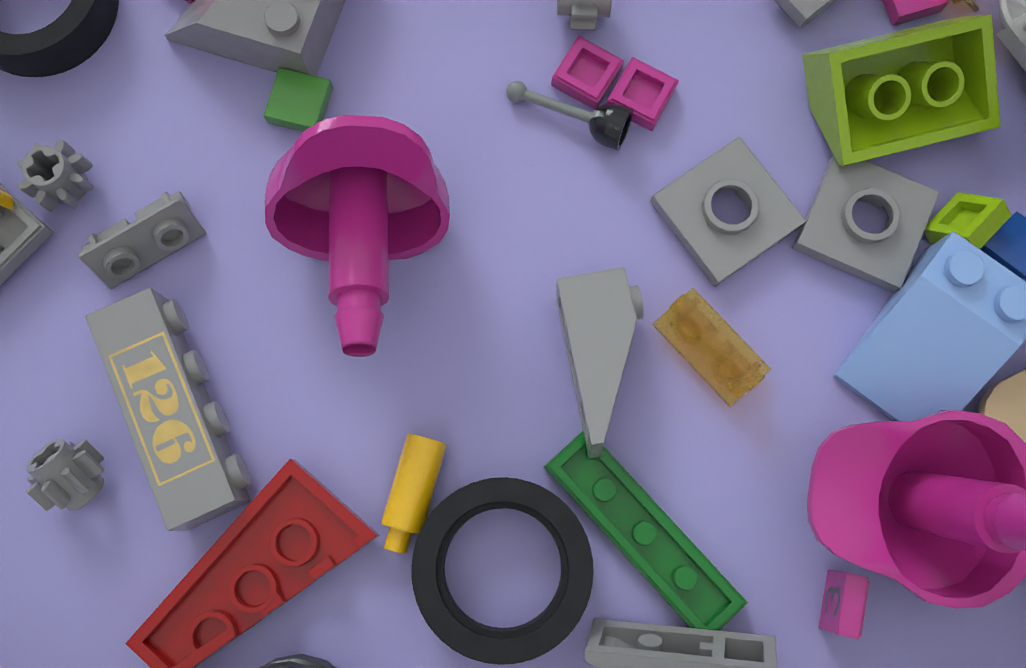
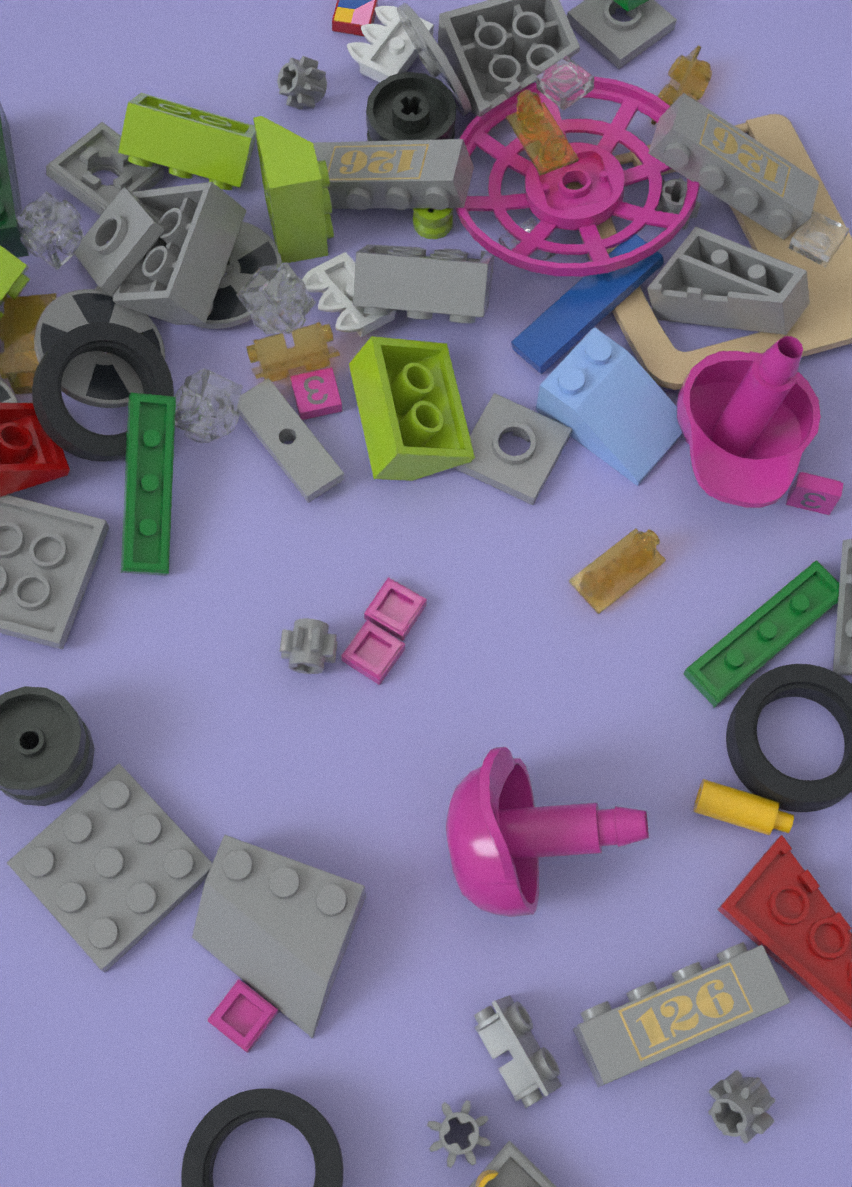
camera: 90 degrees left, 10 degrees down
(297, 100) = (388, 906): bright green tile -> none
(598, 327) = (620, 651): light grey slope -> none
(606, 124) = (425, 636): hinge -> none
(715, 245) = (495, 577): light grey piece -> none
(969, 216) = (521, 376): lime plate -> none

